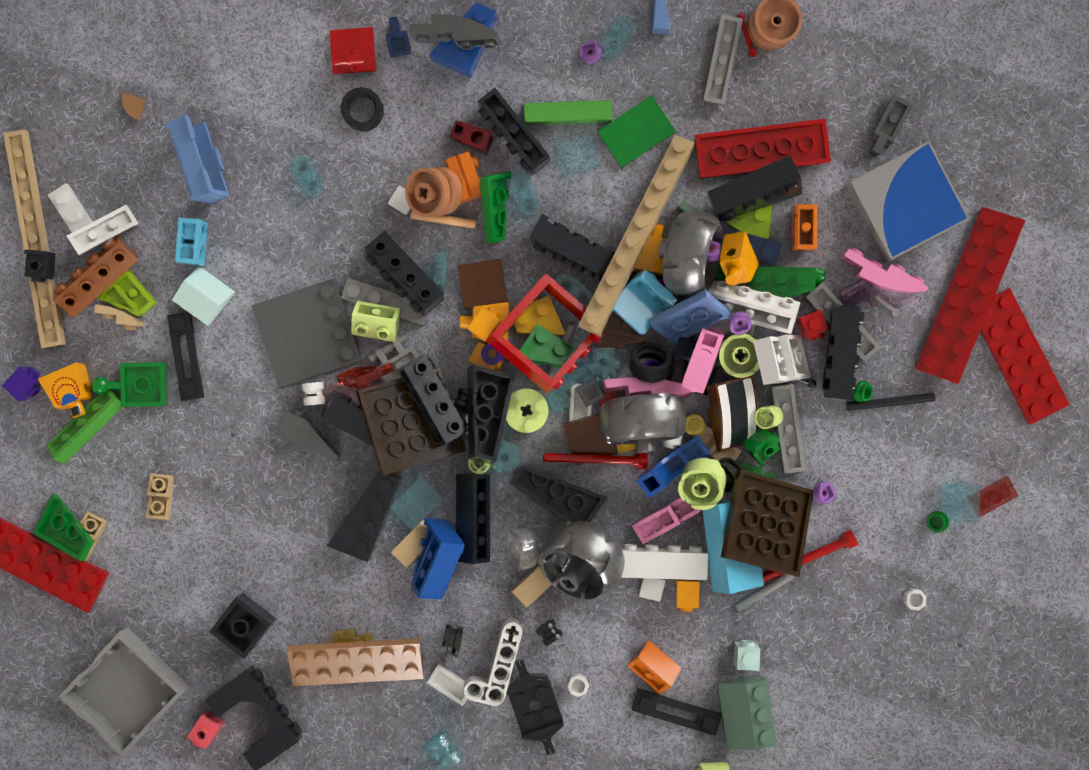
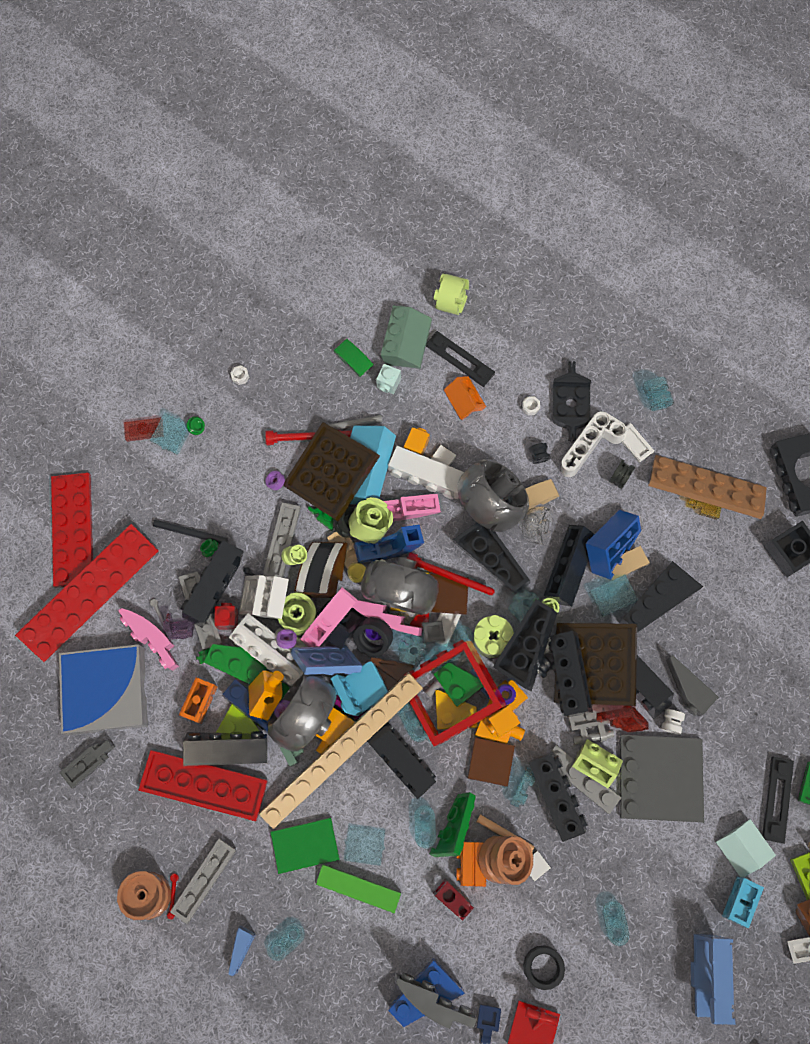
camera: 160 degrees left, 15 degrees down
(514, 131) = (413, 888): black brick -> none
(590, 52) = (317, 937): medium lavender tile -> none
(762, 445) = (308, 534): green brick -> none
(796, 668) = (353, 357): none -> green slope

